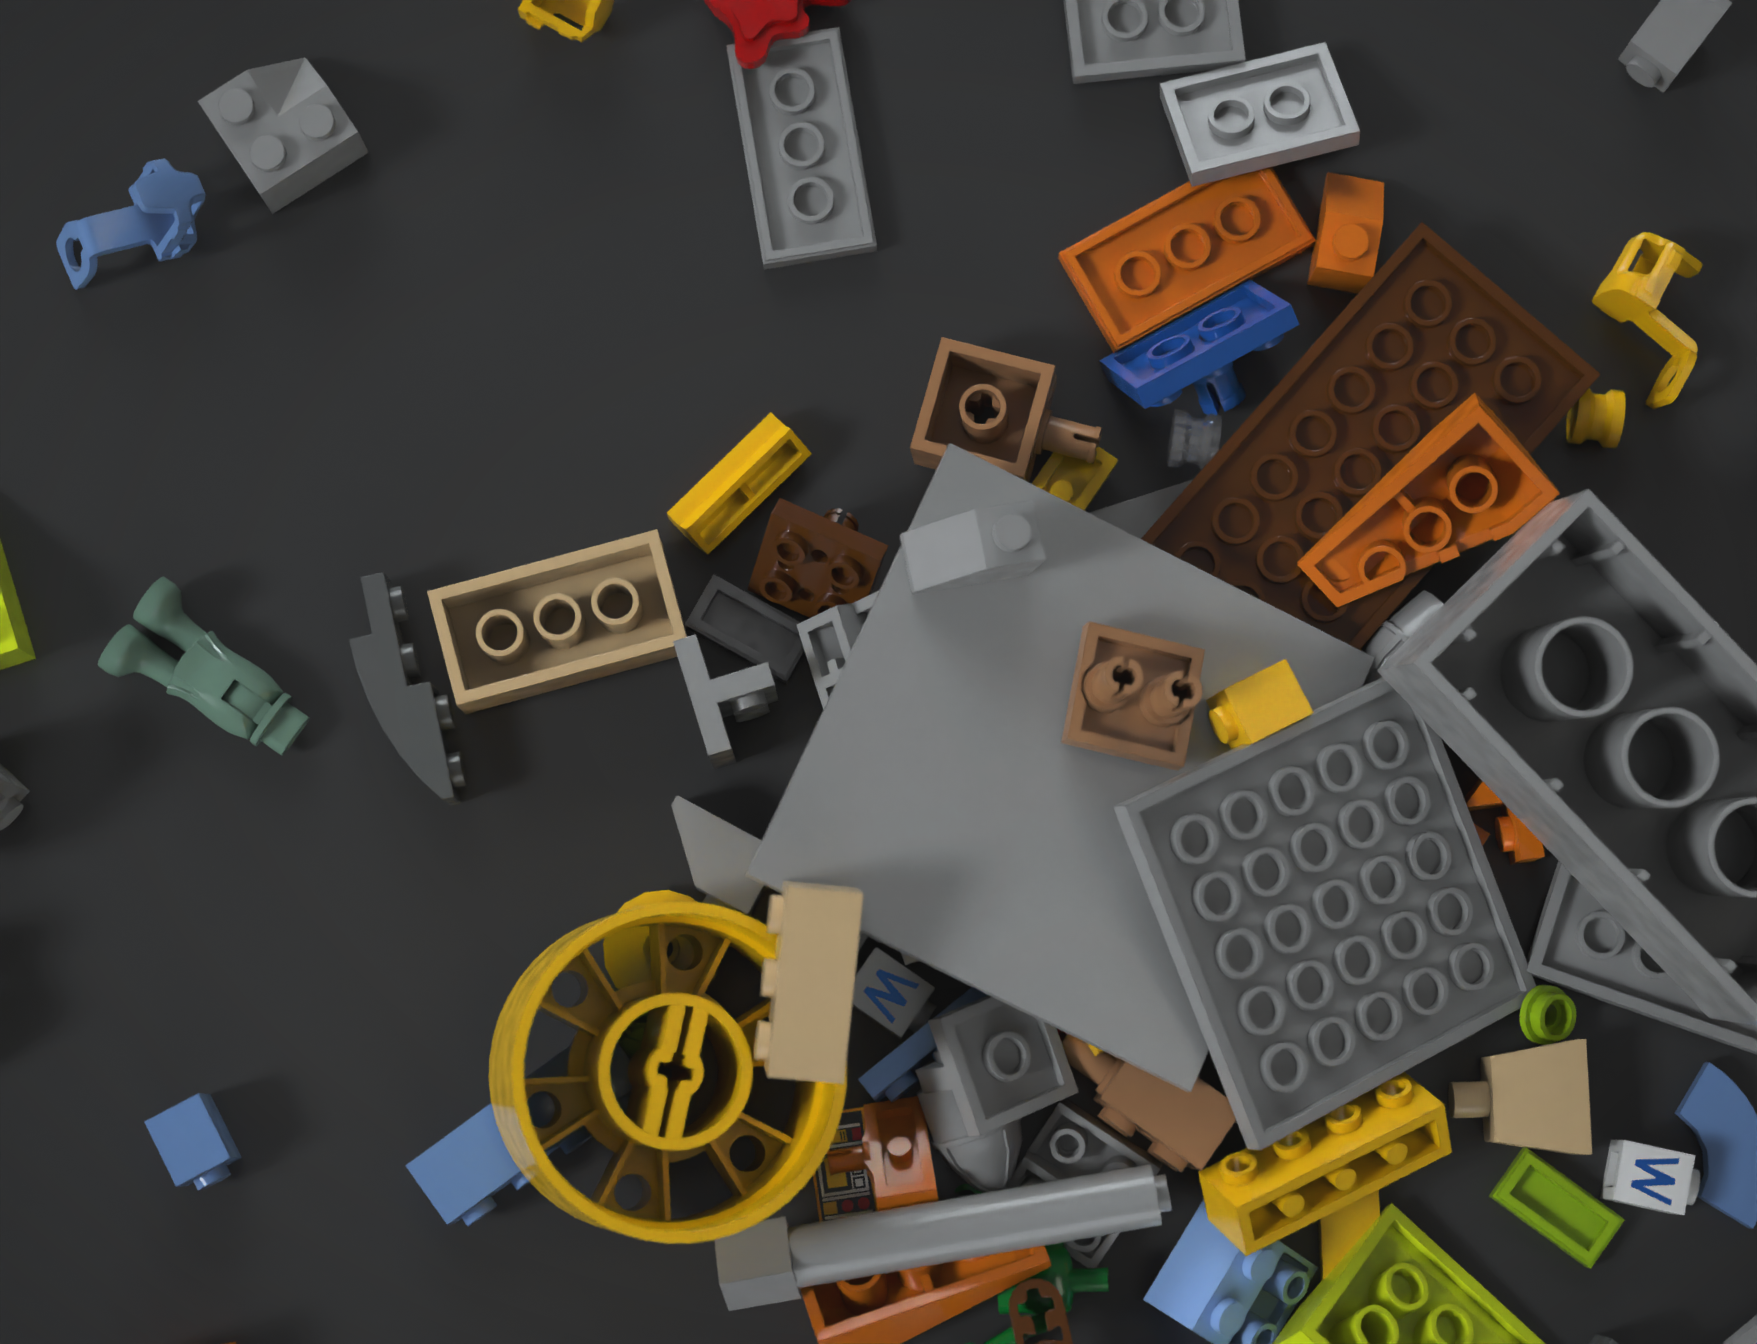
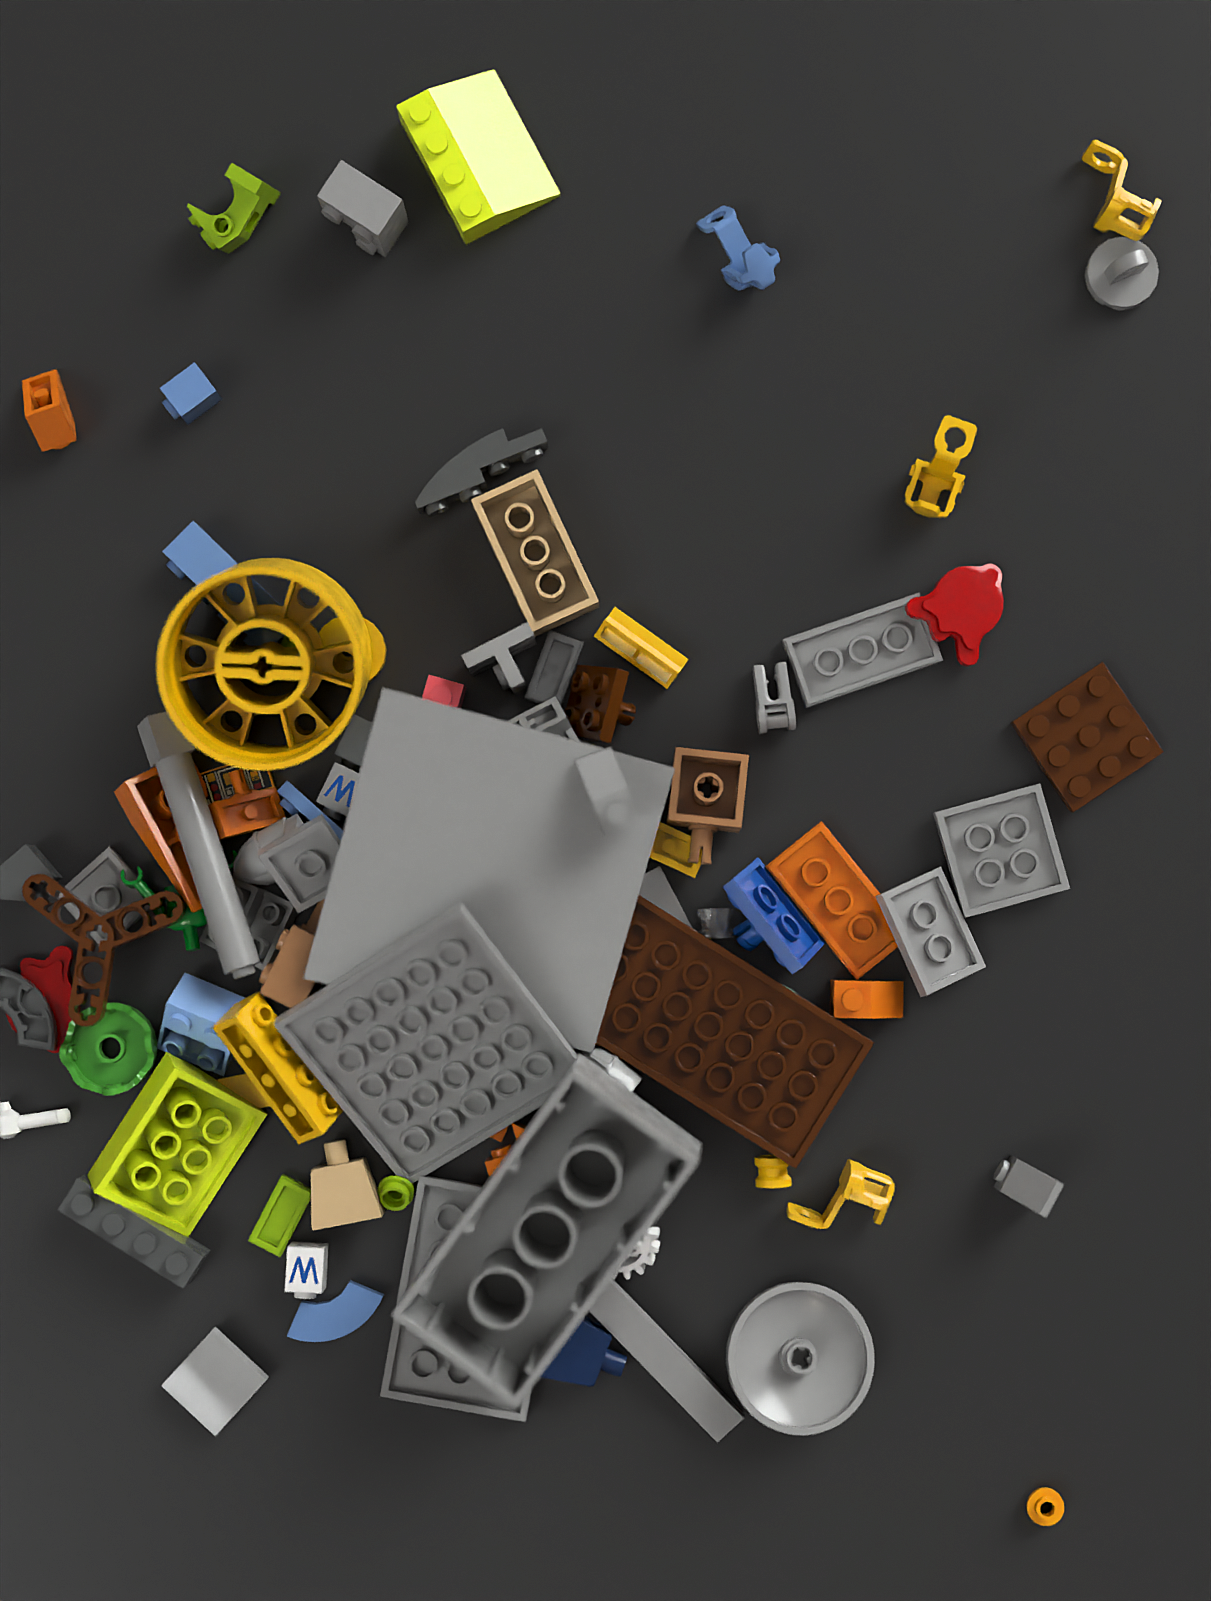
camera: 80 degrees right, 5 degrees up
(208, 675) = (469, 349): sand green piece -> none
(283, 129) = (816, 329): light grey slope -> none
(718, 857) = (410, 671): light grey slope -> none
(757, 803) = (444, 691): none -> coral brick
(810, 982) = (323, 736): tan brick -> none
(866, 306) = (778, 712): none -> light grey piece
(1133, 696) = (535, 905): medium nougat plate -> none
(1258, 706) = (543, 983): yellow brick -> none
(1444, 497) = (699, 1082): orange wedge -> none

